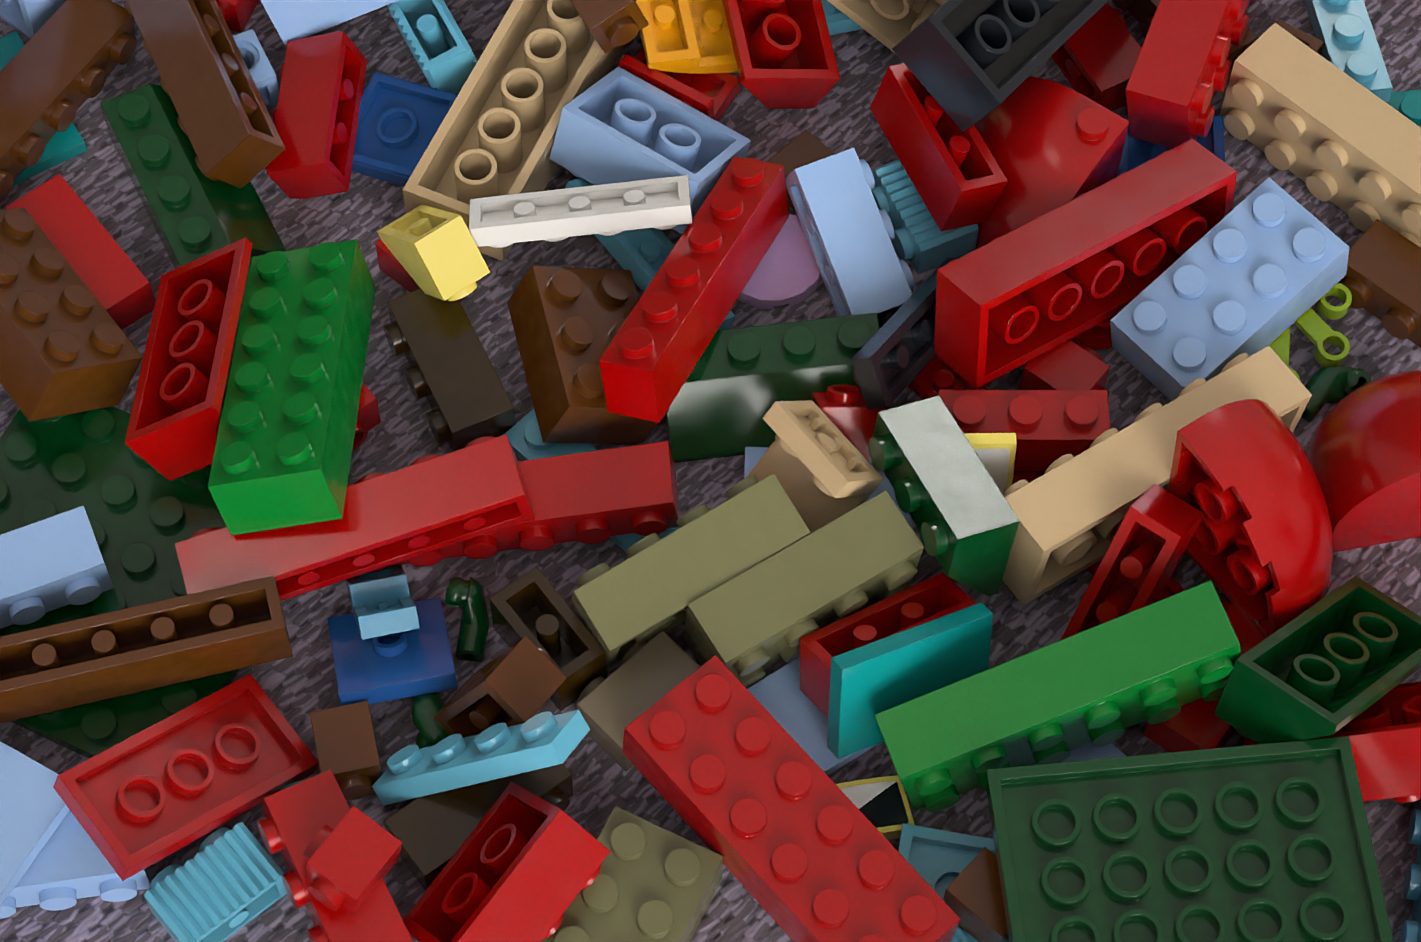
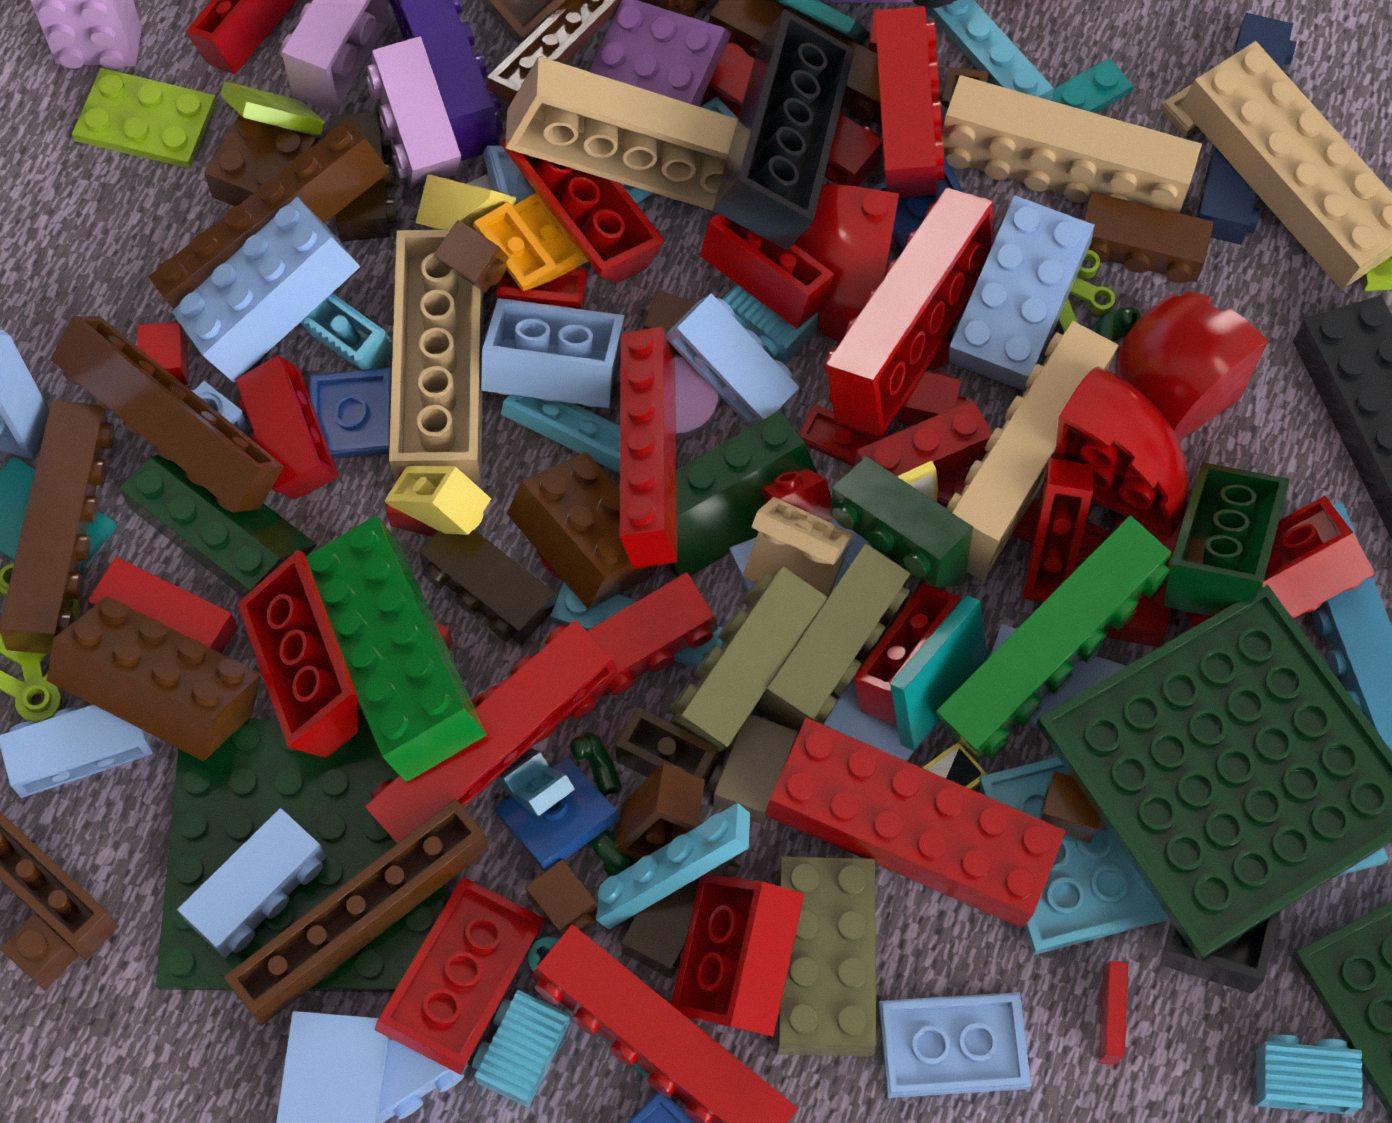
camera: 25 degrees left, 5 degrees up
(349, 861) = (625, 986): red brick -> none
(580, 211) = (536, 424): white plate -> none
(898, 348) = (815, 418): black plate -> none

